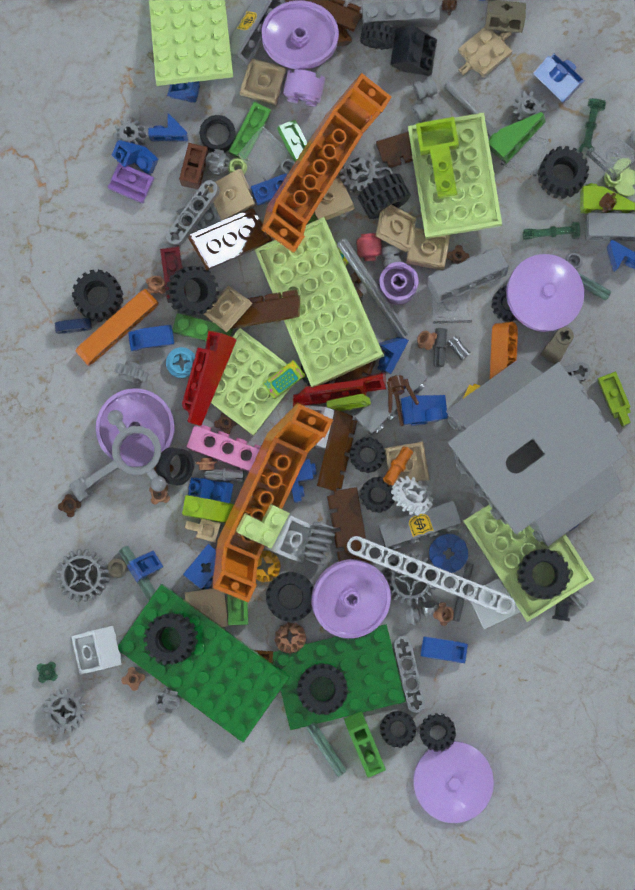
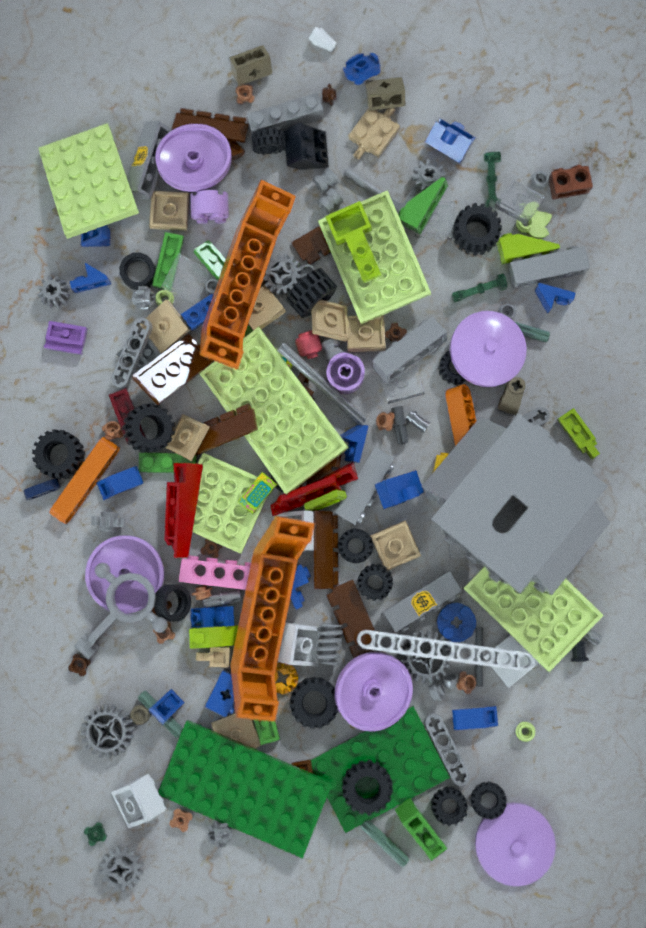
camera: 10 degrees left, 0 degrees up
(130, 153) = (59, 309): blue slope -> none
(155, 643) = (200, 789): black tyre -> none
(173, 358) = (146, 496): medium azure gear -> none
(193, 166) = (121, 307): copper brick -> none
(264, 531) = (276, 645): yellowish green plate -> none
(297, 641) = (331, 745): nougat gear -> none
(397, 386) = (367, 475): reddish brown plant -> none
(398, 465) = (387, 550): orange pin -> none
(413, 496) = (408, 576): white gear -> none
(490, 682) = (531, 731): none -> yellowish green plate
(560, 579) = (570, 628): black tyre -> none
(608, 202) = (527, 247): reddish brown plate -> none

